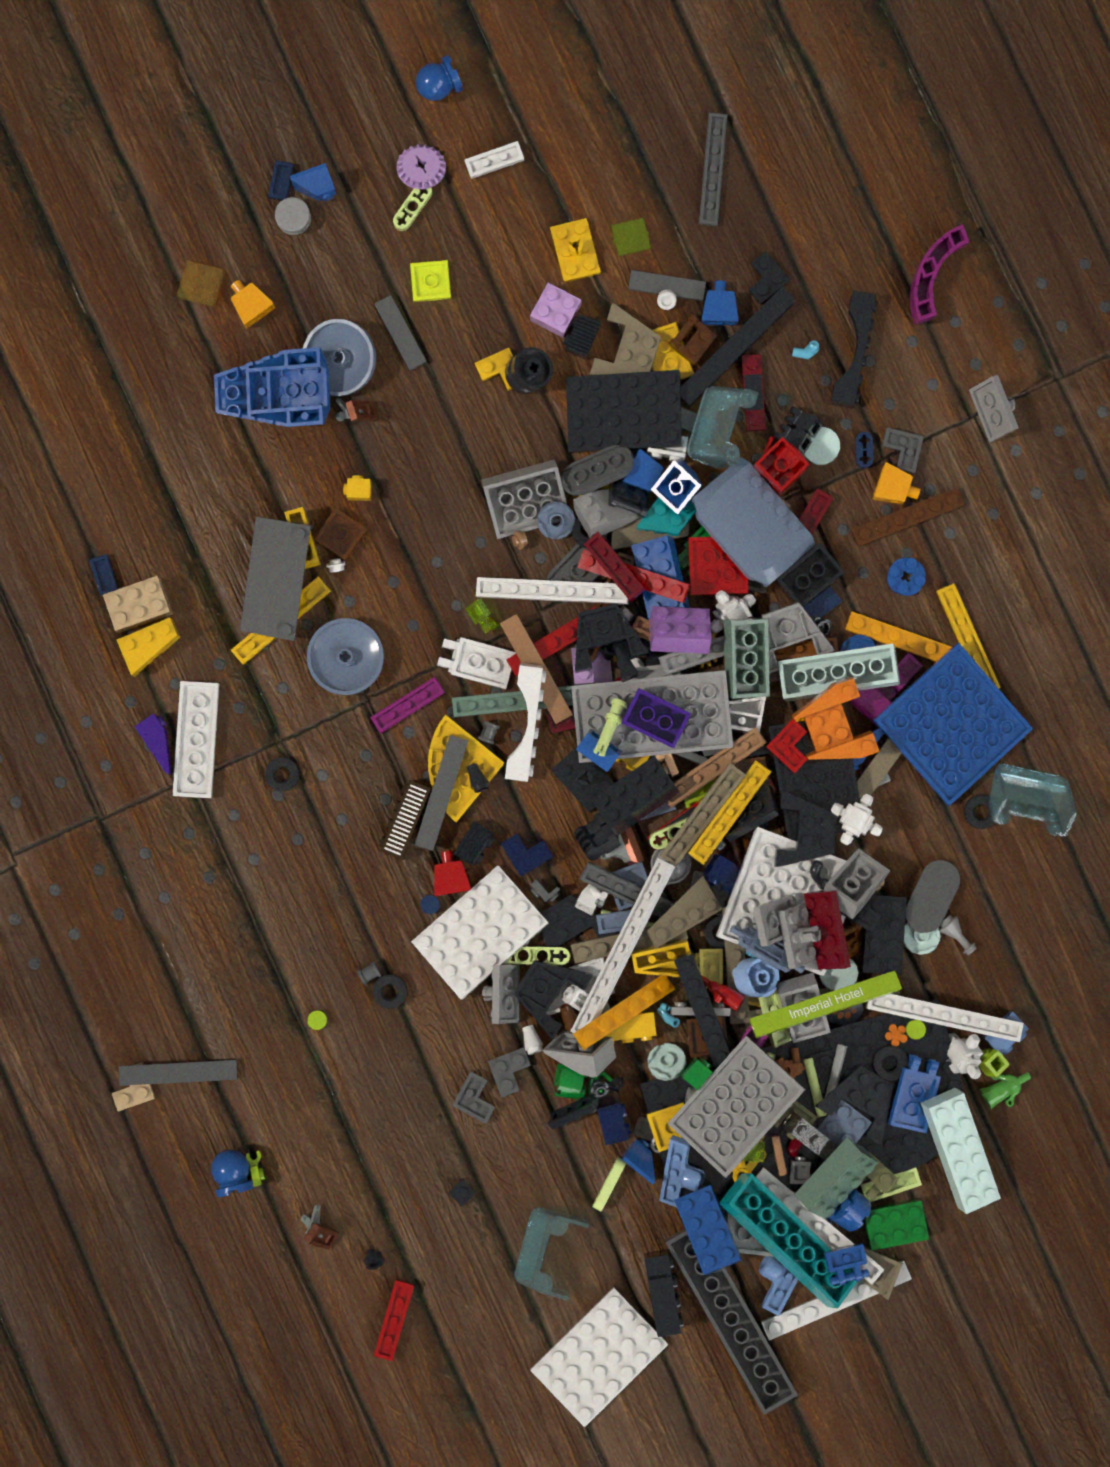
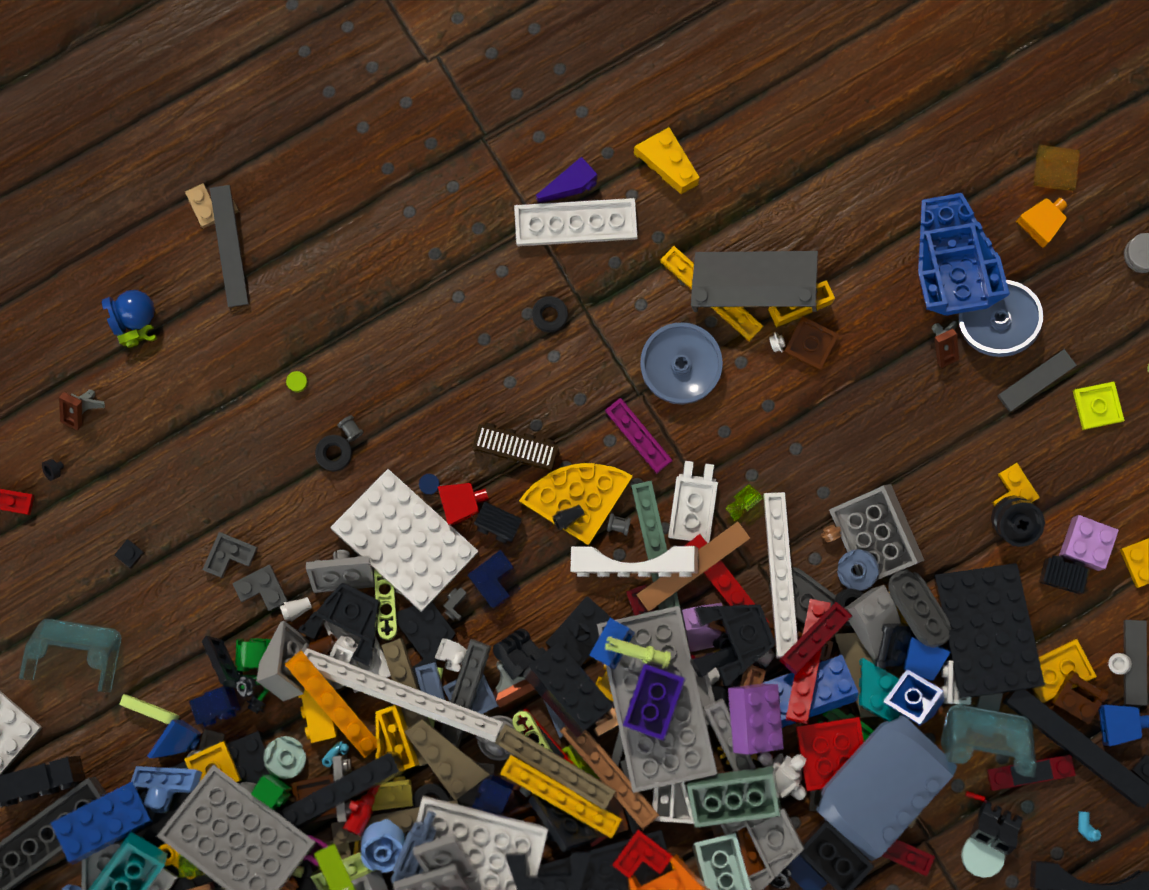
camera: 90 degrees right, 5 degrees down
(103, 574) = (735, 109): dark blue tile -> none
(137, 604) = (709, 145): tan brick -> none
(358, 488) = (862, 355): yellow brick -> none
(441, 792) = (548, 481): dark grey tile -> none
(636, 347) = (1061, 636): dark tan wing -> none
(781, 466) = (954, 813): red brick -> none

